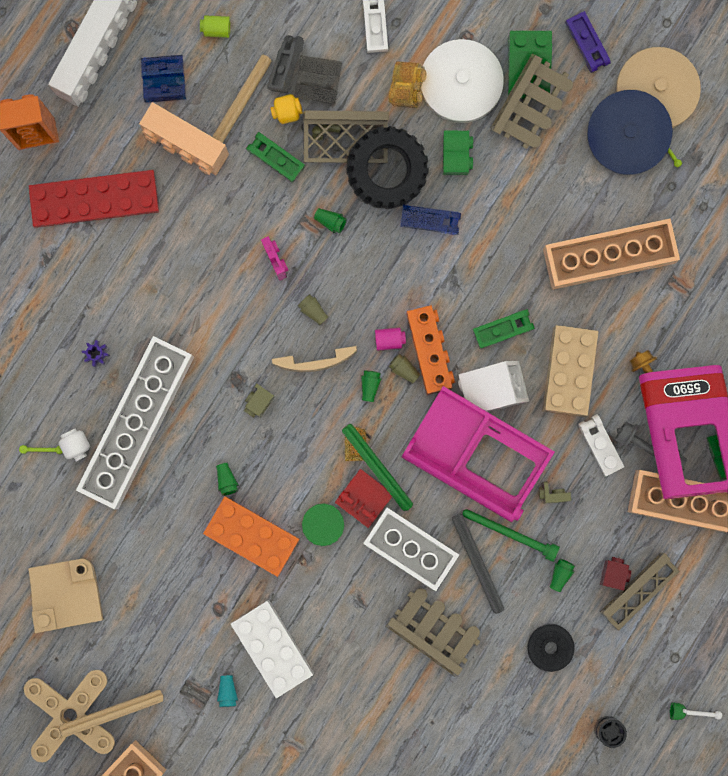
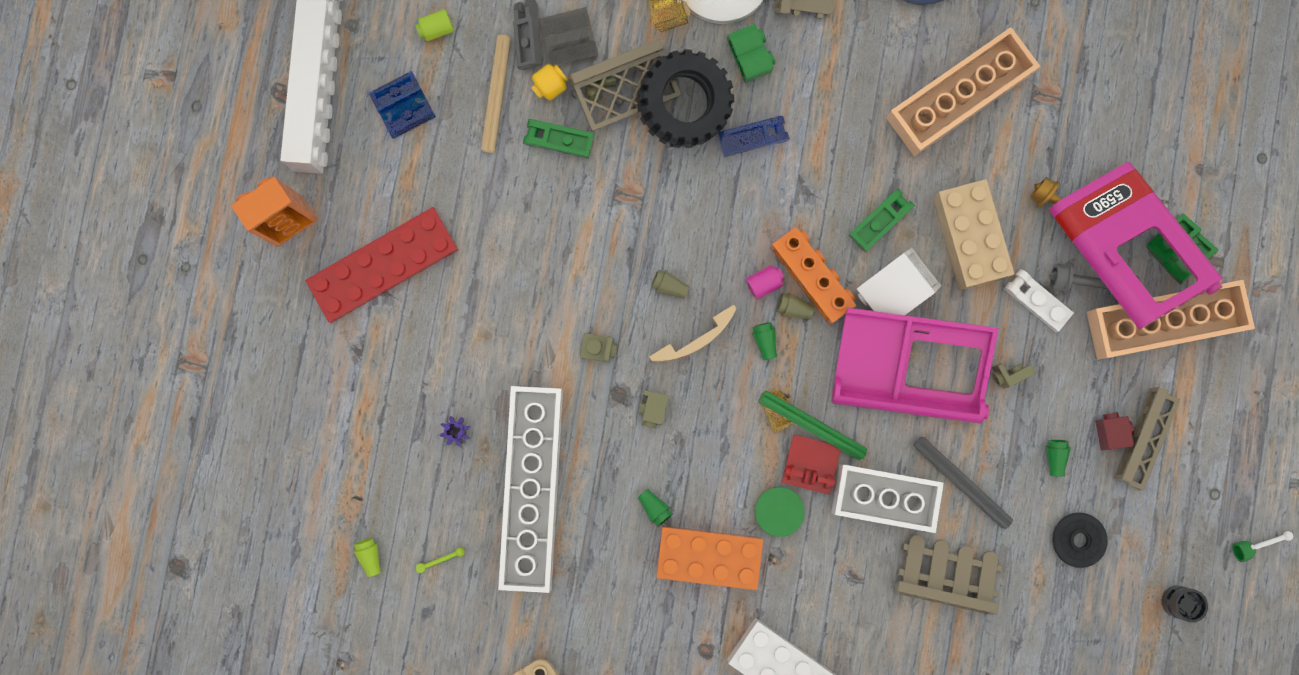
camera: 20 degrees left, 0 degrees up
(74, 444) = (474, 540): white head -> none
(183, 139) = (452, 160): light nougat brick -> none
(235, 335) = (598, 348): none -> olive bracket
(279, 265) = (612, 253): dark pink wing -> none
(331, 220) = (648, 181): green cone -> none
(547, 550) = (1035, 436): green piece -> none

